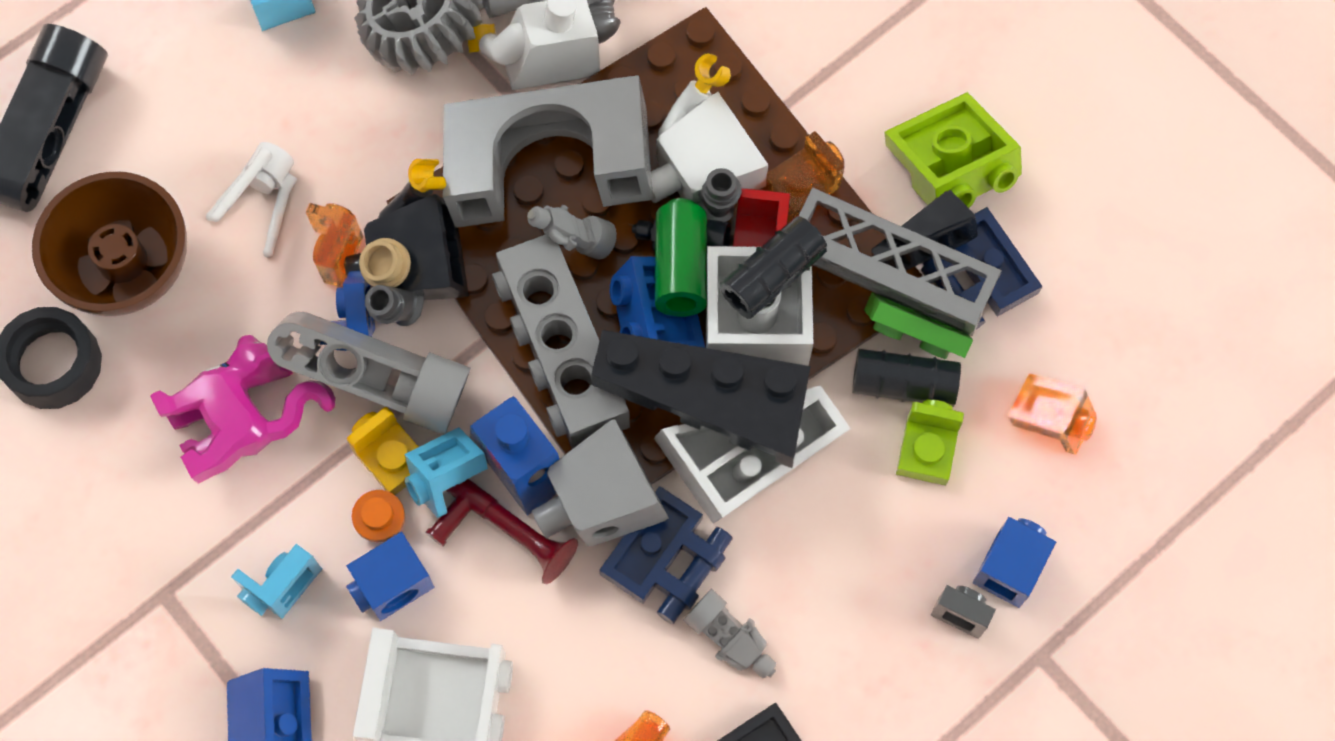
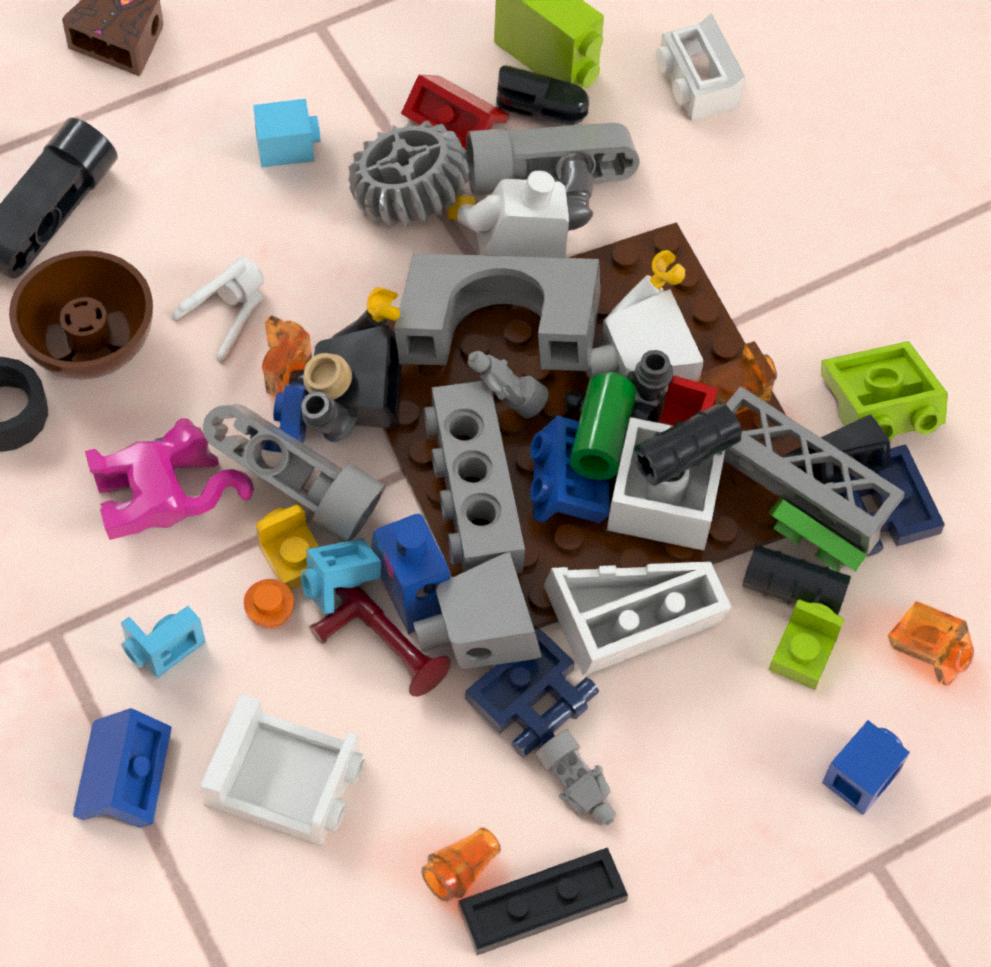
camera: 10 degrees right, 10 degrees down
(388, 577) = (266, 657): blue brick -> none
(731, 393) = (623, 548): black wing -> none
(964, 610) = (807, 801): dark grey plate -> none

